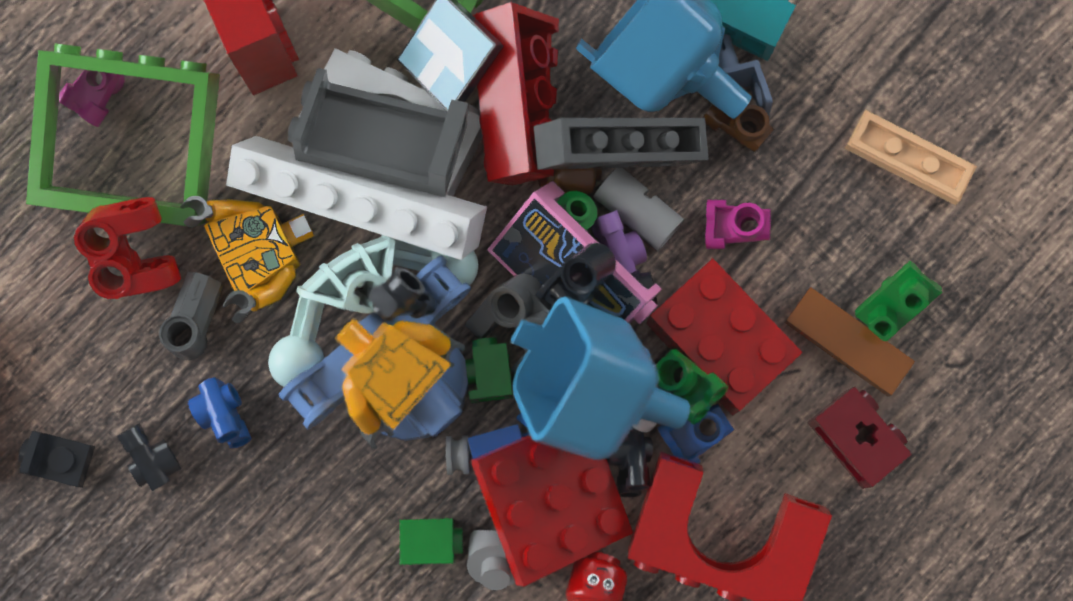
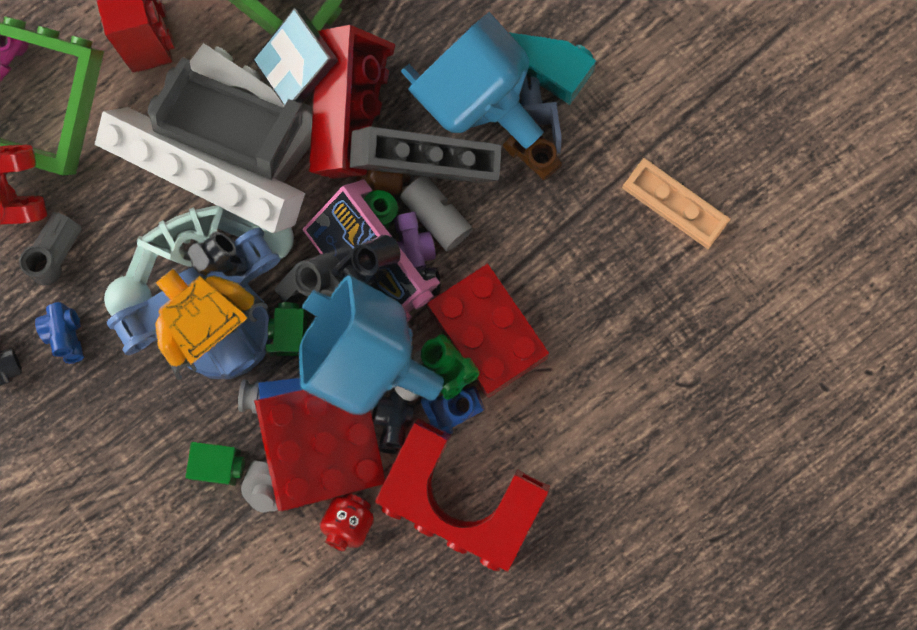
camera: 15 degrees right, 0 degrees up
(251, 248) = (108, 200): light orange torso -> none
(726, 222) = (509, 236): dark pink plate -> none
(838, 427) = (571, 420): dark red brick -> none
(849, 342) = (596, 351): dark orange tile -> none
(897, 301) = (639, 323): green hips -> none

